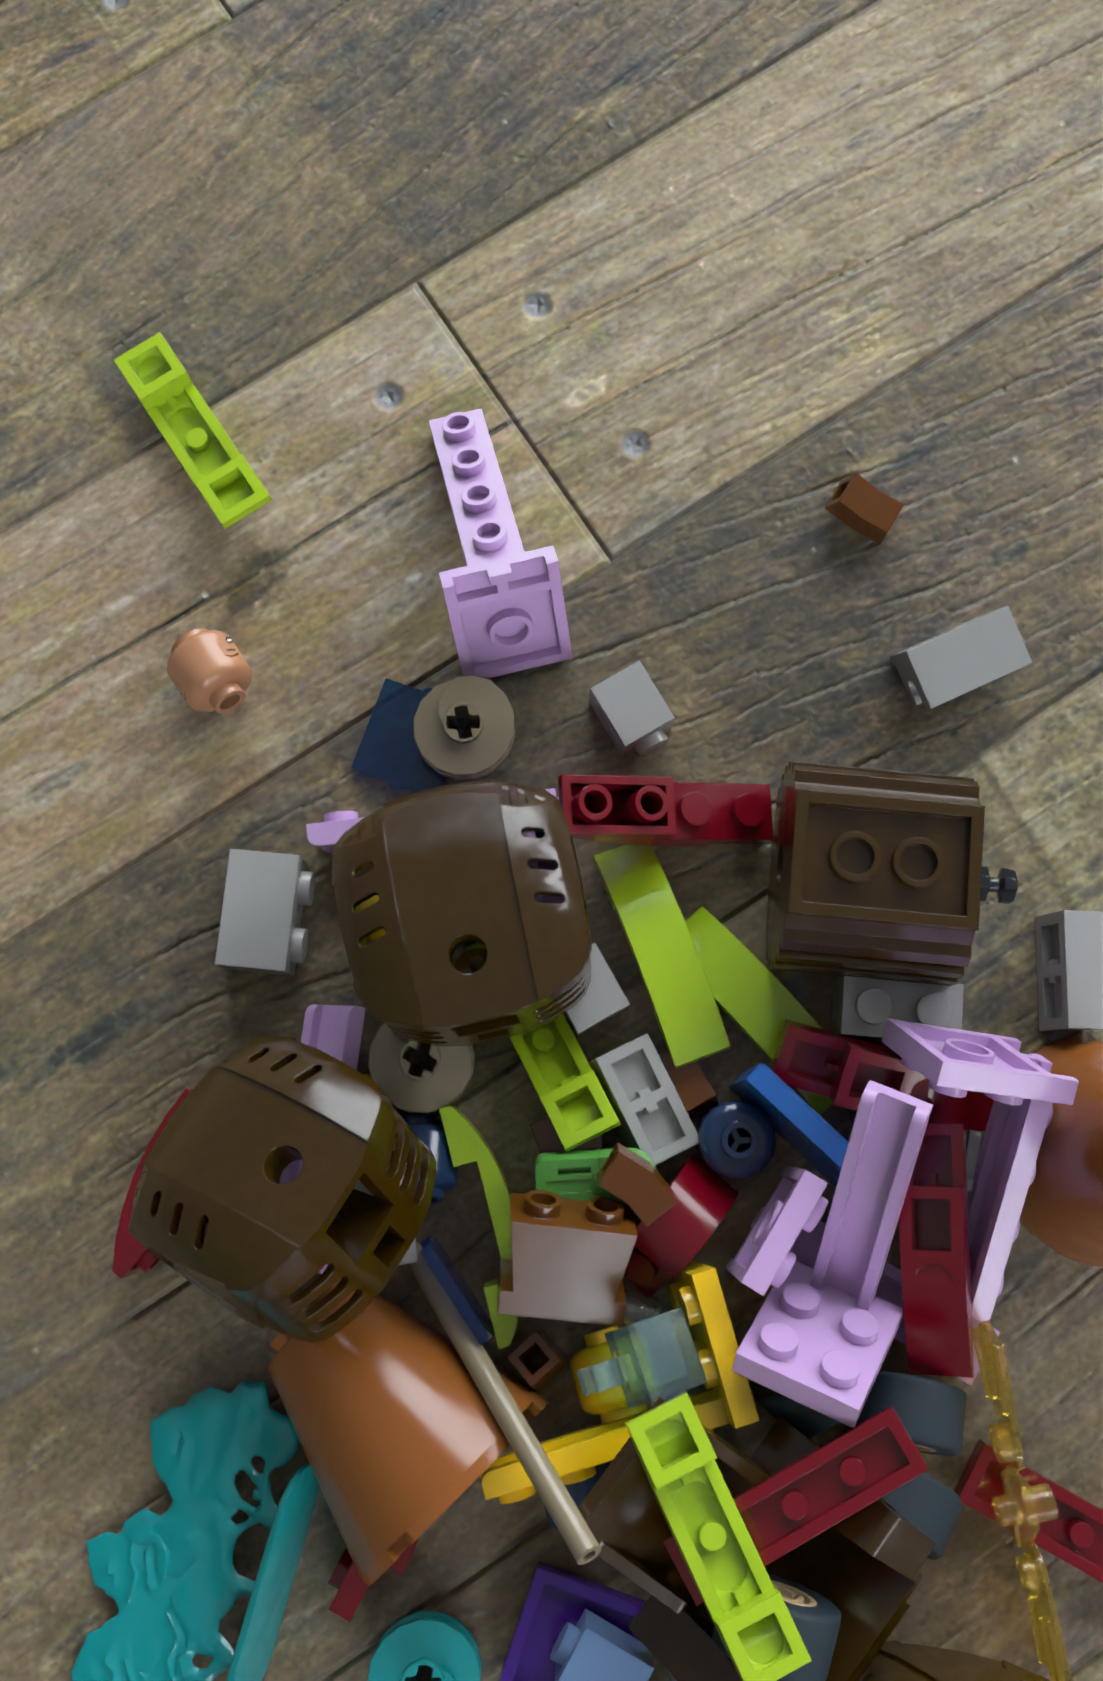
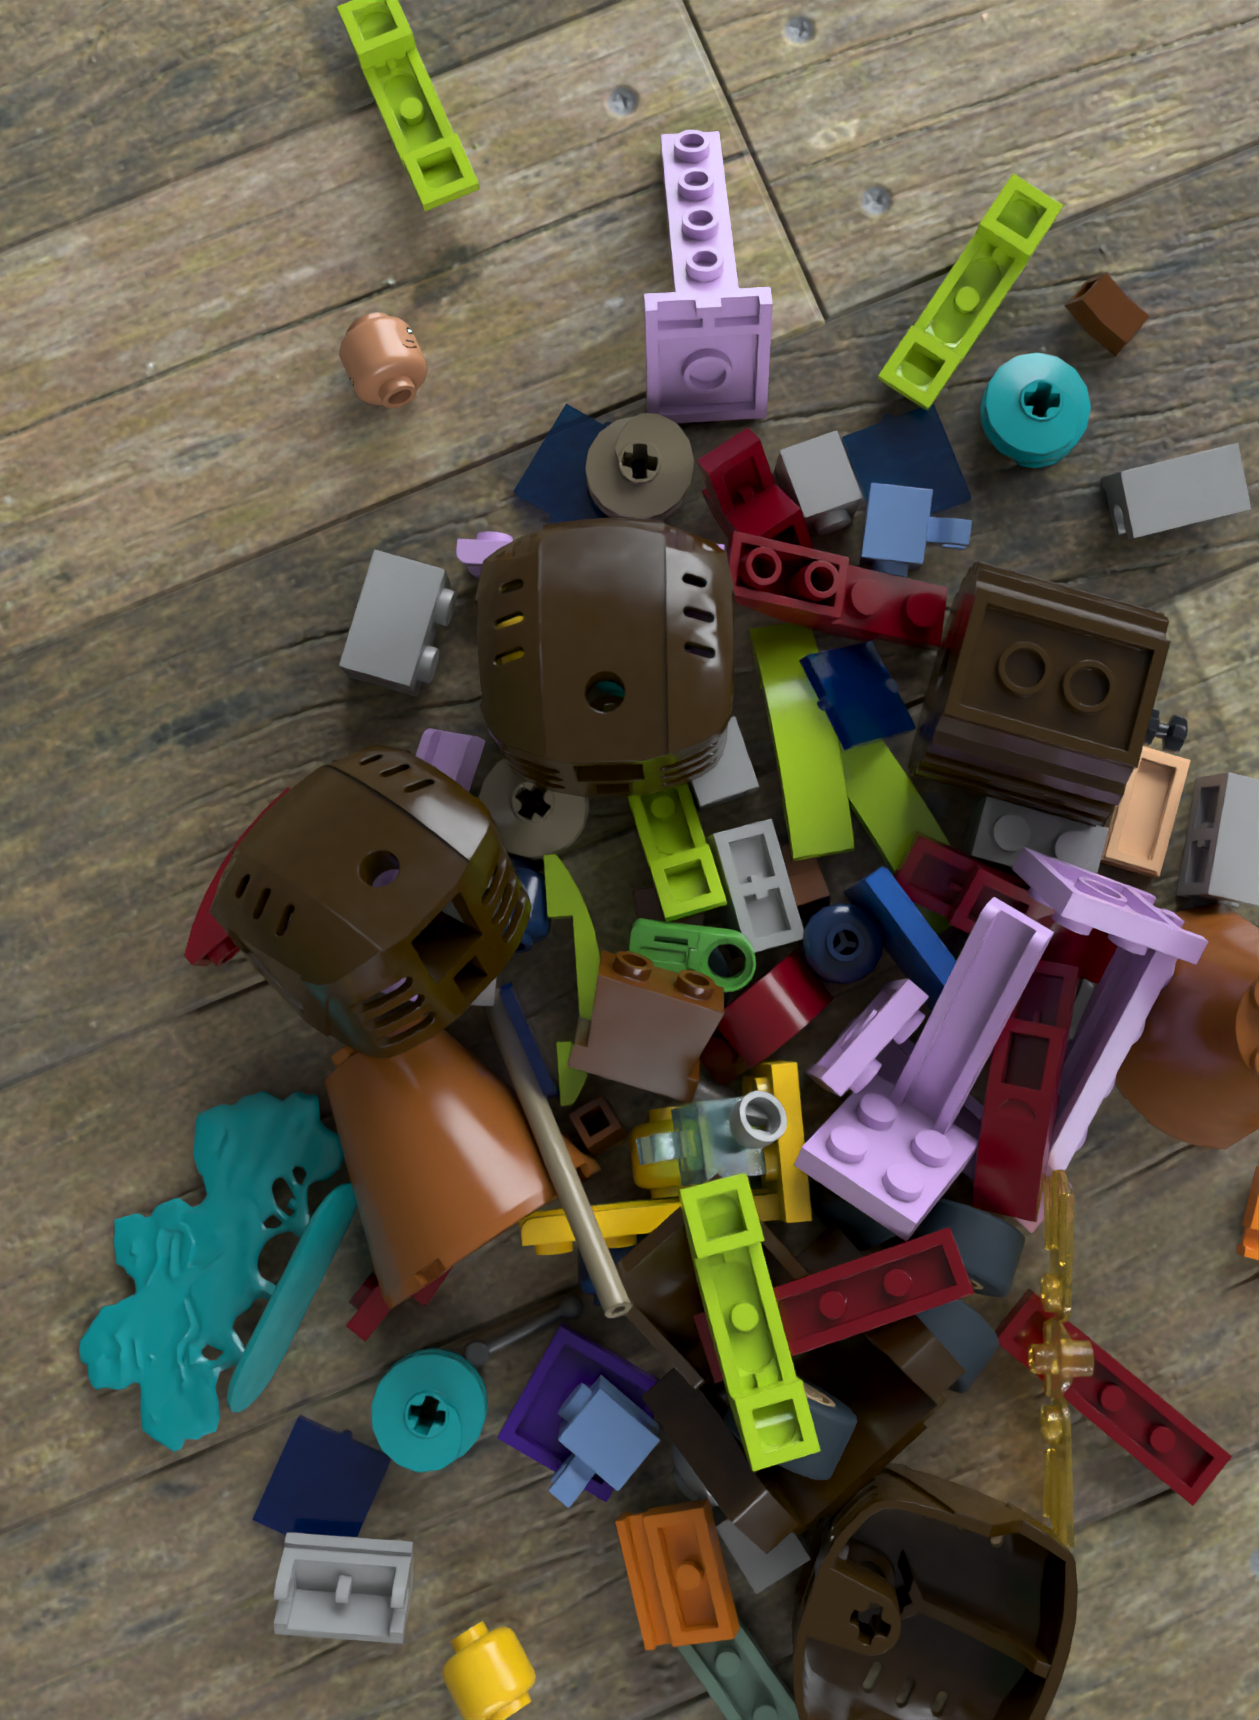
camera: 10 degrees right, 5 degrees up
(463, 1604) = (479, 1351): none -> dark grey hinge
(569, 736) = (745, 494): none -> dark red brick
(636, 1183) = (732, 963): reddish brown piece -> none
(686, 1322) = (757, 1110): none -> light grey hinge
(705, 900) = (857, 695): none -> clear blue piece
(710, 680) = (908, 453): none -> clear blue piece
(715, 738) = (900, 527): none -> medium blue brick
(737, 513) = (971, 292): none -> lime slope
(834, 588) = (1056, 392): none -> teal piece
(996, 961) = (1146, 814): none -> light nougat tile

